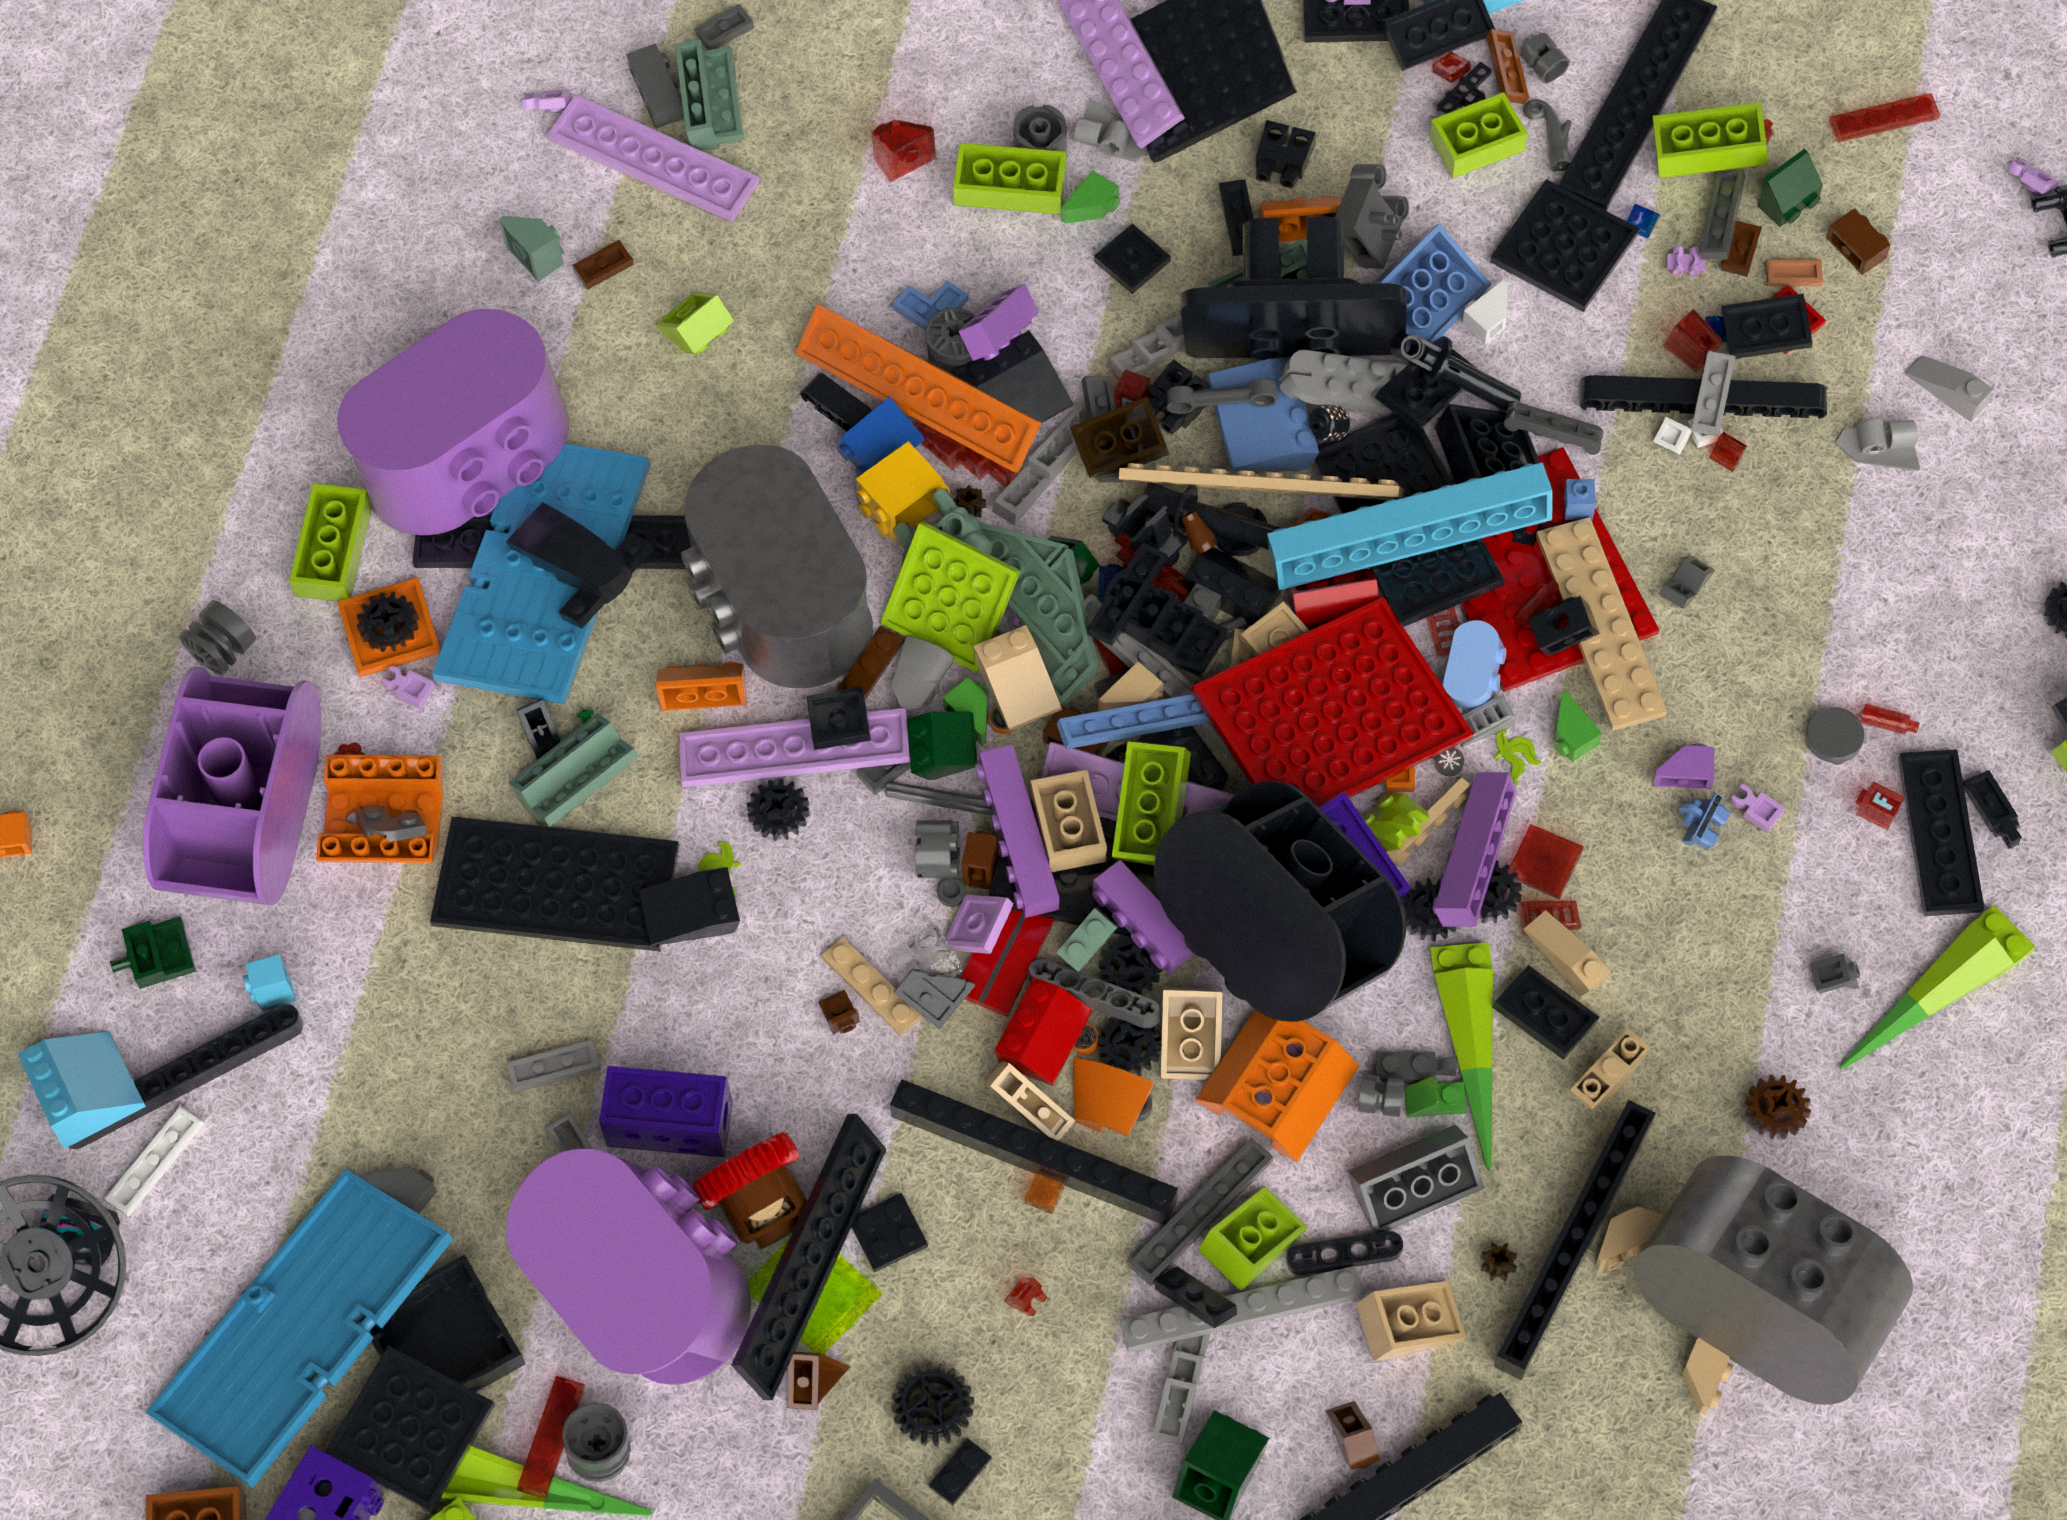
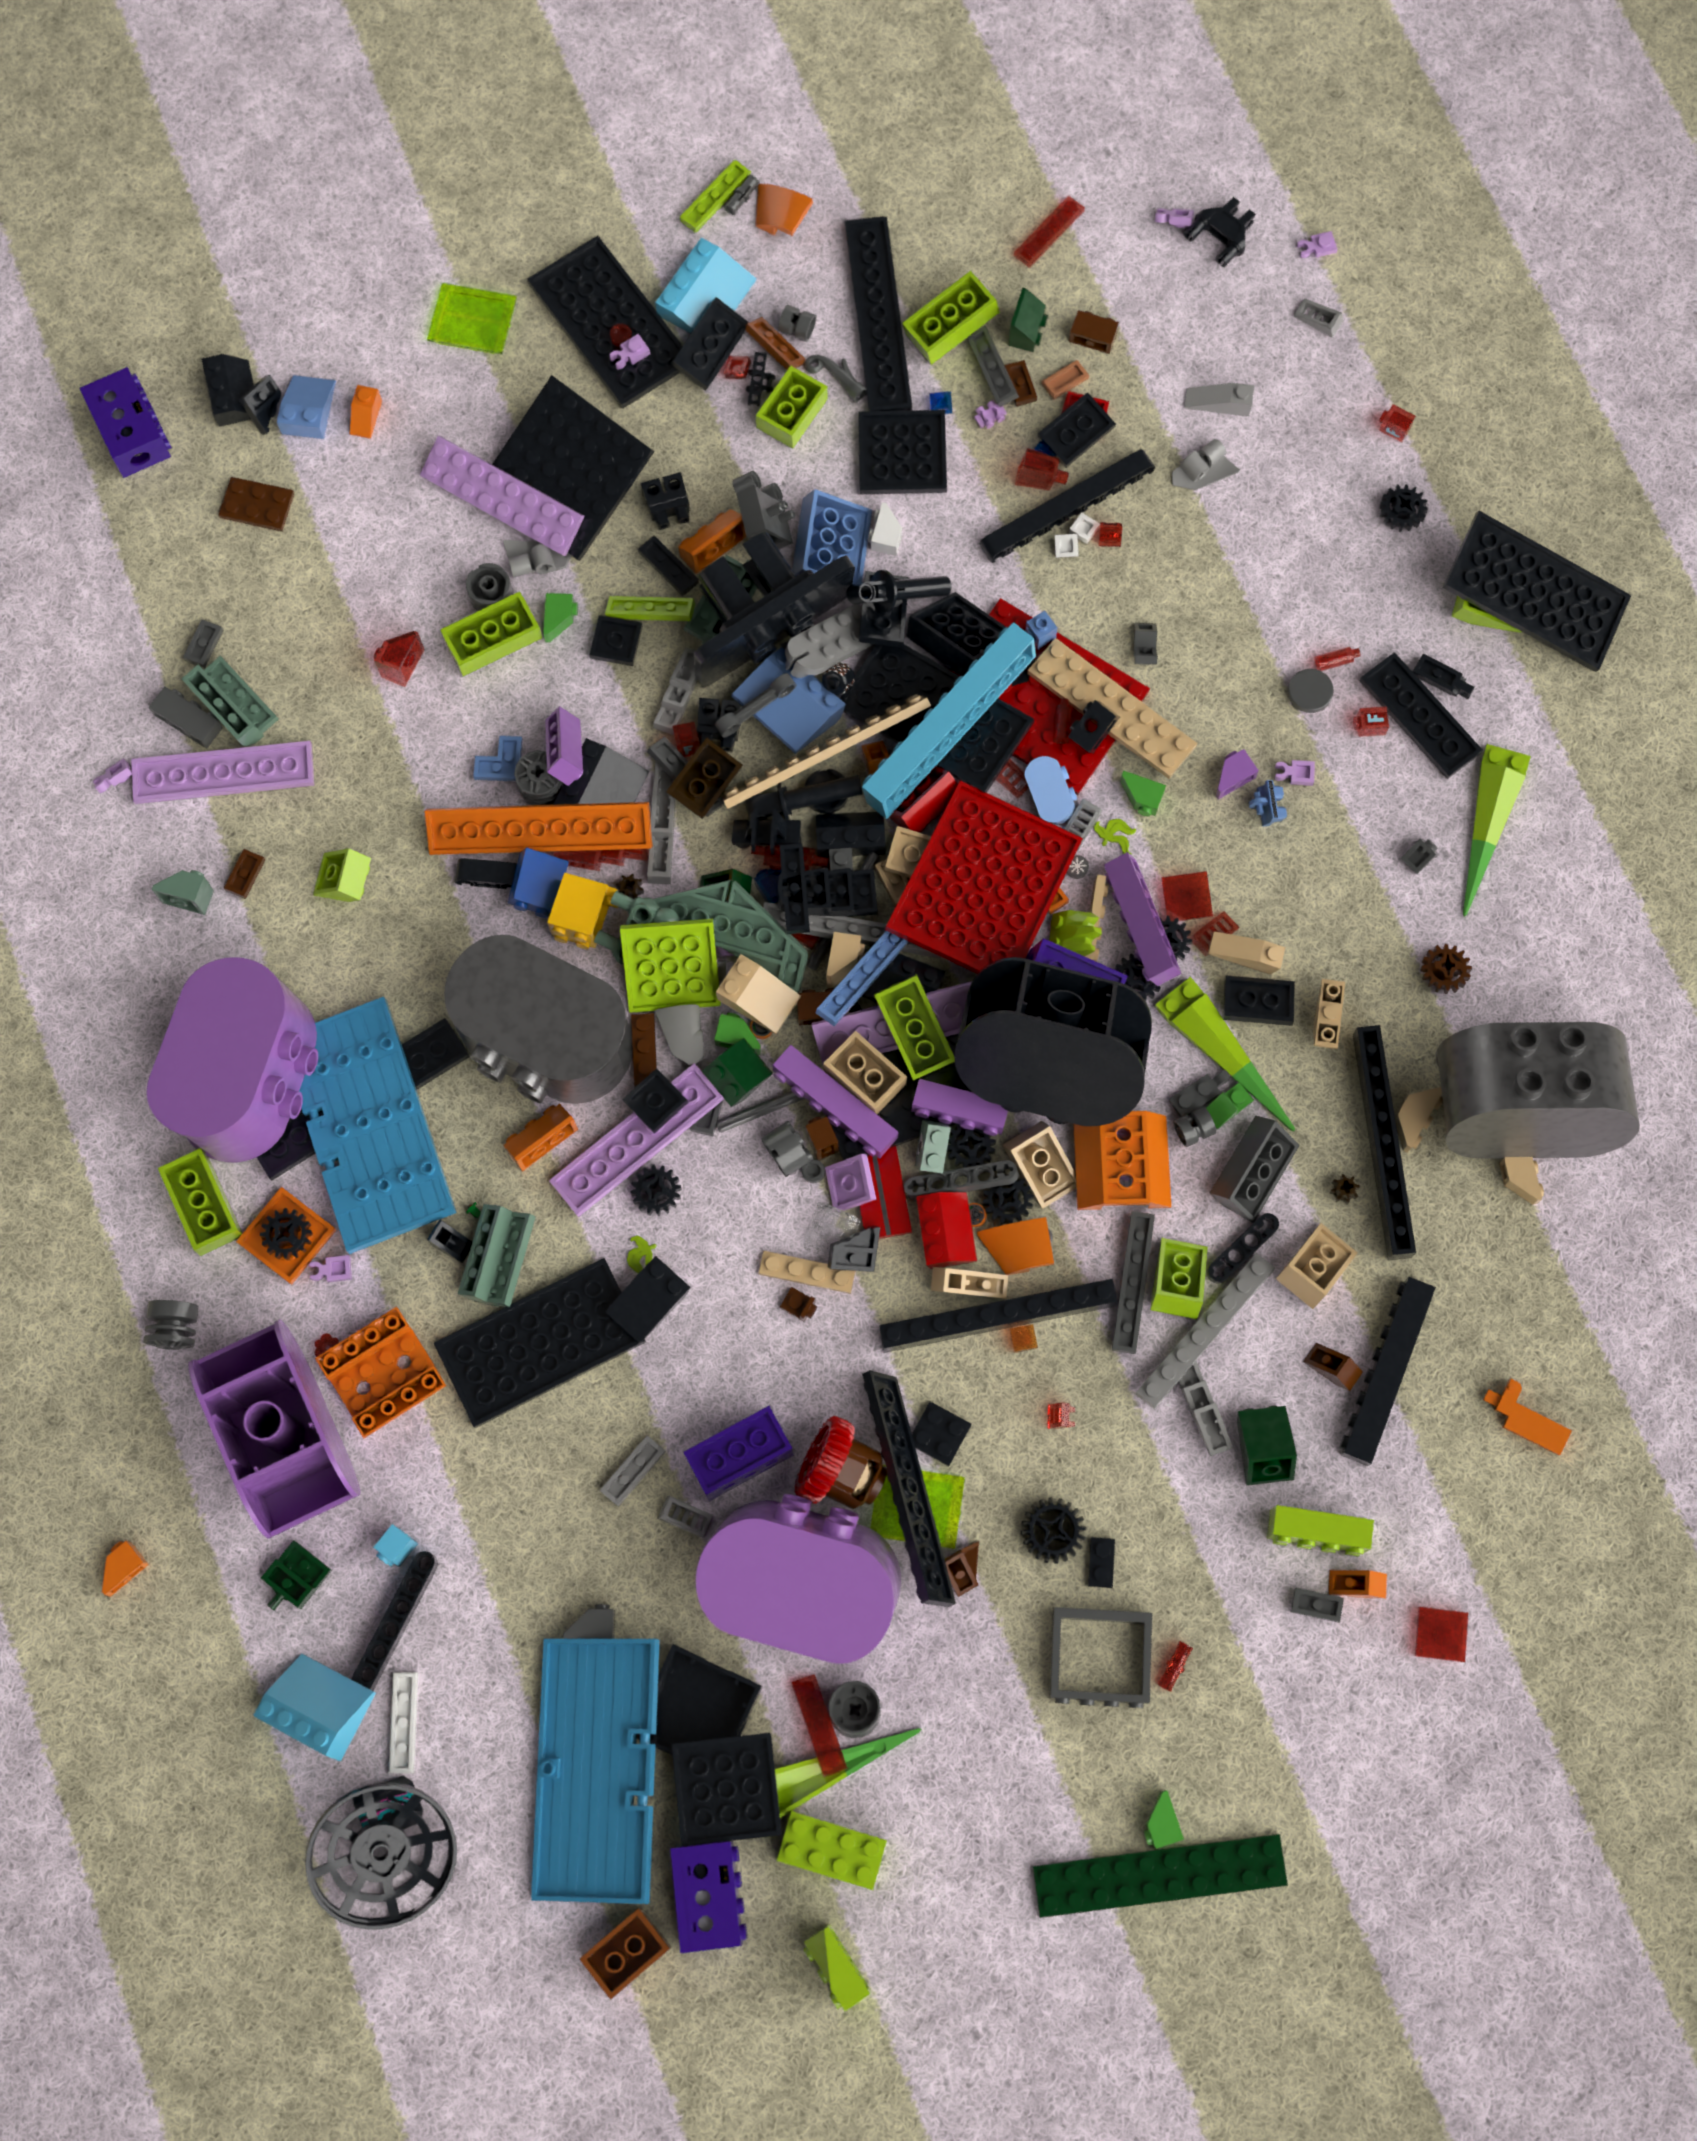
camera: 35 degrees left, 10 degrees up
(377, 821) = (387, 1383): dark grey plate -> none
(578, 560) = (393, 1104): black slope -> none
(1188, 246) = (650, 608): none -> lime plate
(1195, 1297) = (1174, 1344): black plate -> none
(1198, 533) = (806, 813): reddish brown cone -> none
(1554, 426) = (986, 587): dark grey plate -> none
(1713, 393) = (1077, 500): light grey plate -> none

